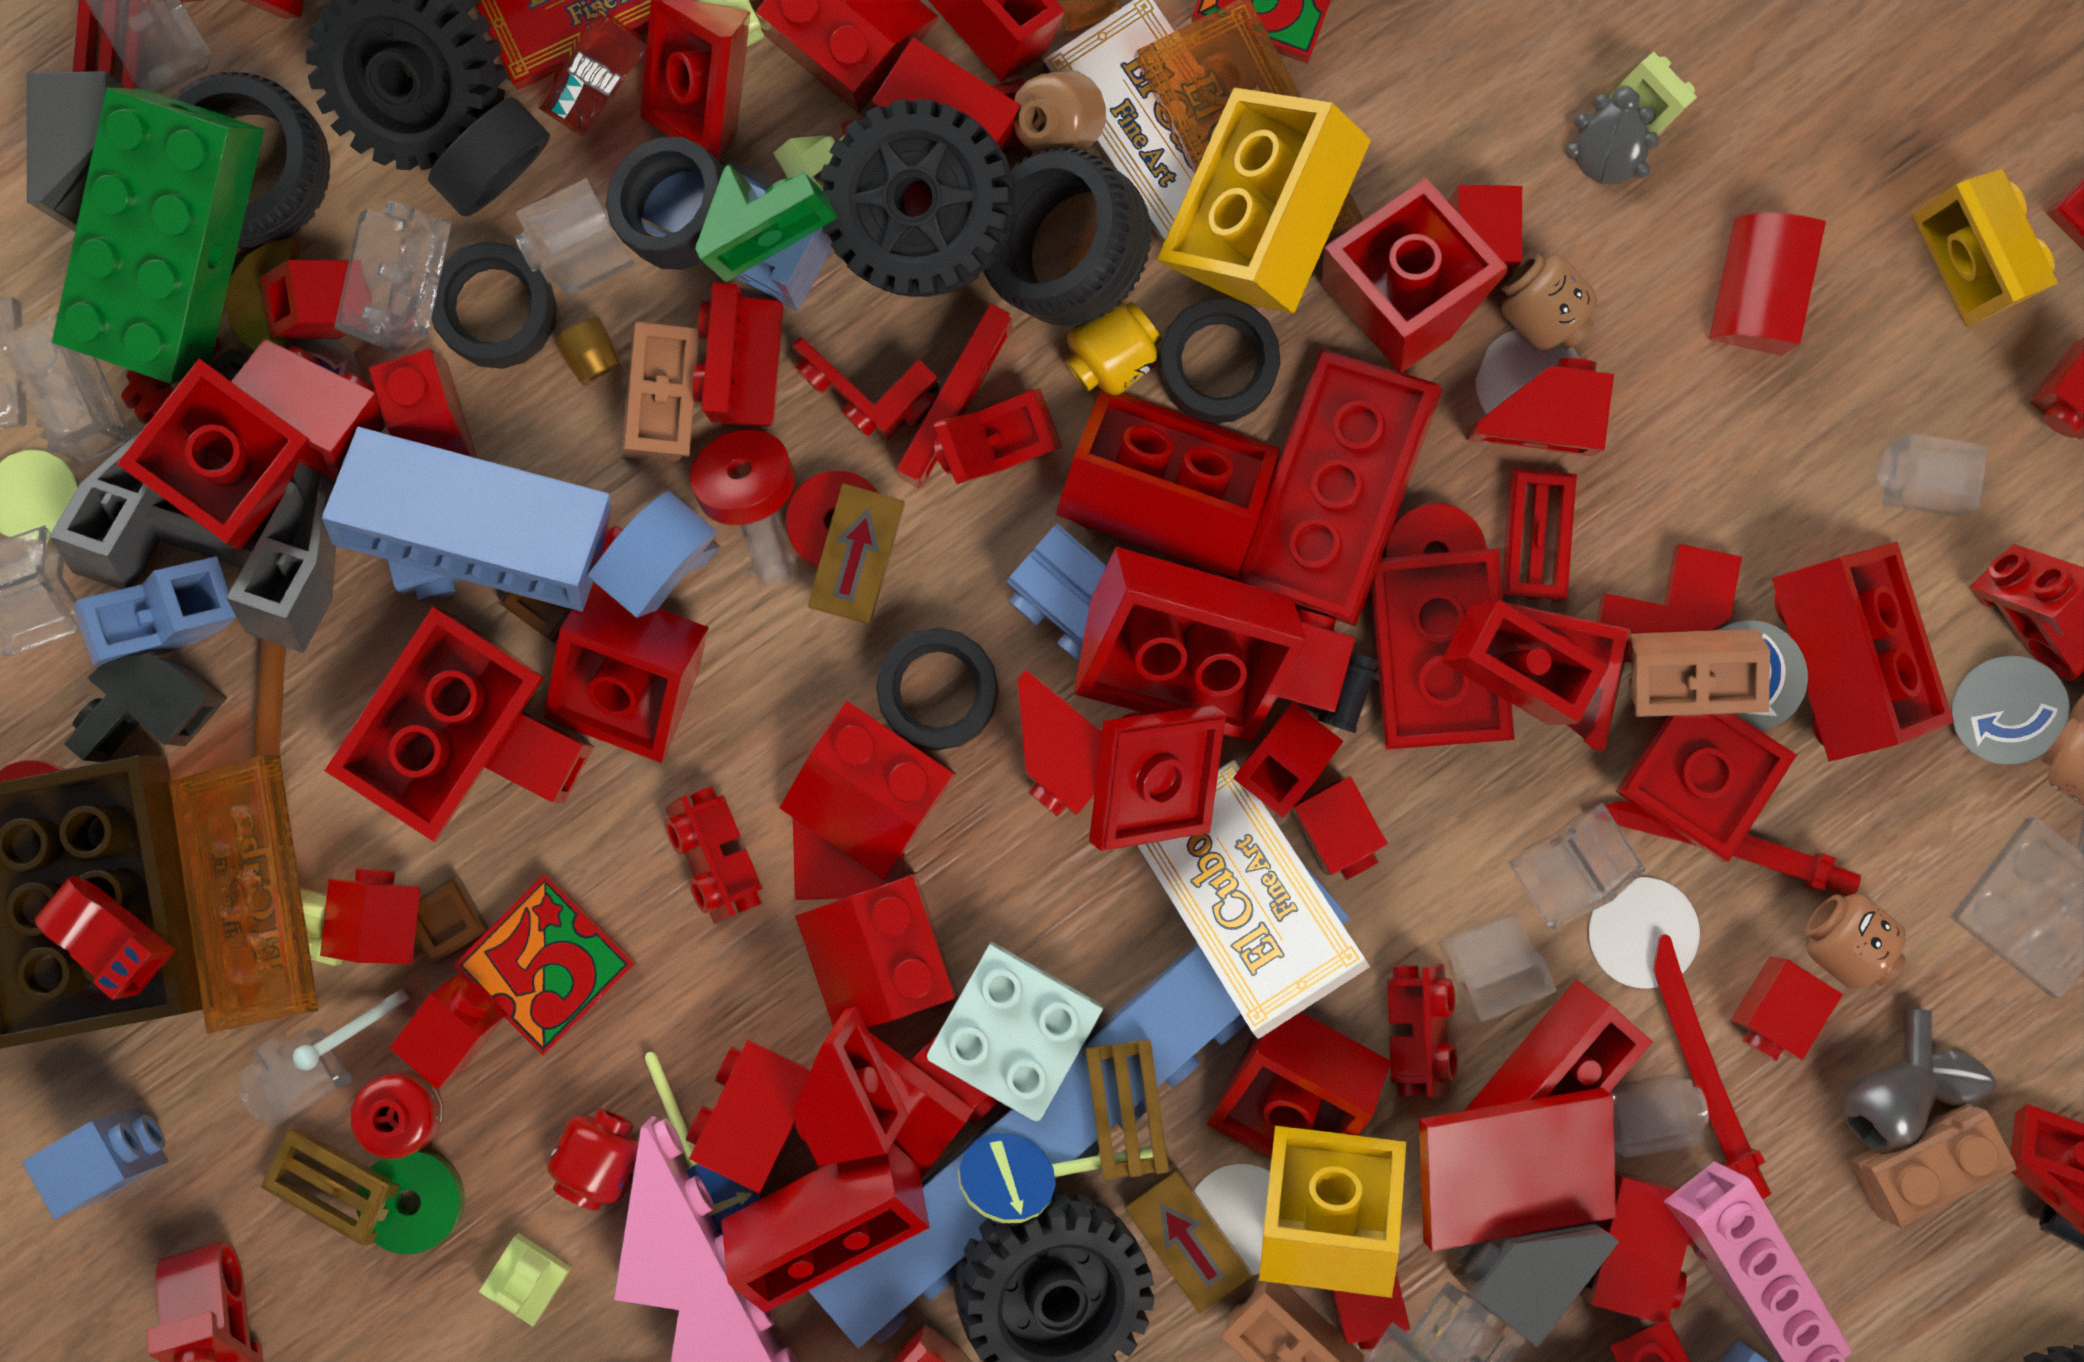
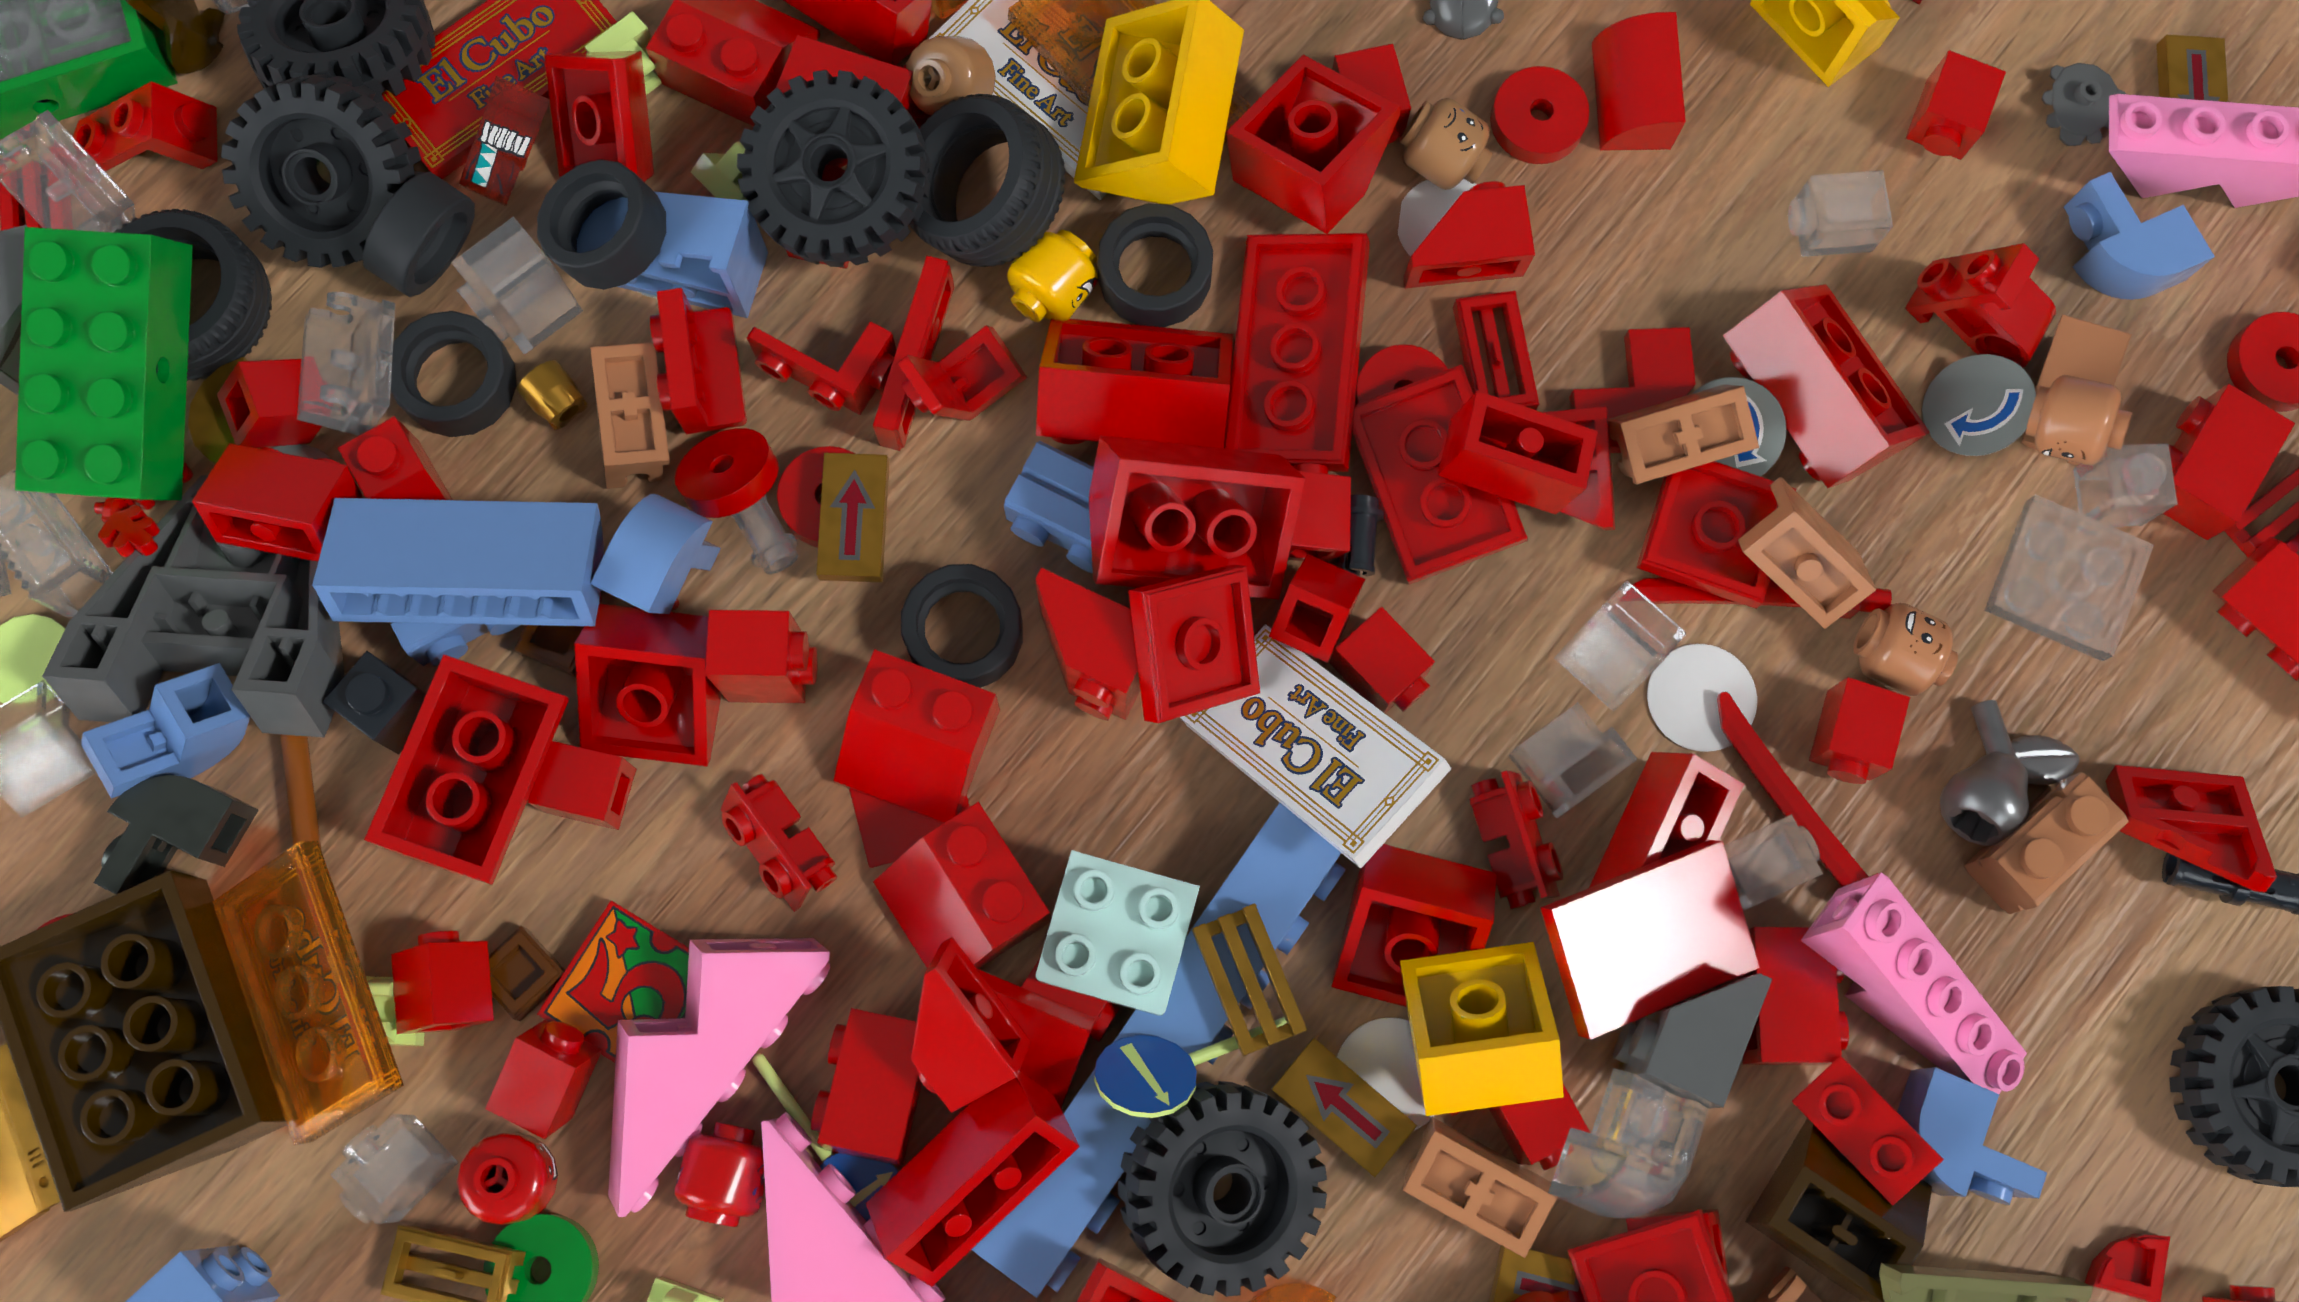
camera: 15 degrees left, 10 degrees down
(103, 938) = (163, 1059): red leg -> none
(216, 455) = (197, 556): red slope -> none
(307, 1056) = (401, 1135): light aqua hinge -> none
(363, 629) = (378, 701): none -> black brick
(579, 1051) = (680, 1067): none -> bright pink slope
(735, 678) = (759, 656): none -> red brick
(751, 229) = (681, 224): green slope -> none
(1674, 266) = (1546, 91): none -> red piece
(1787, 829) = (1808, 557): none -> nougat panel

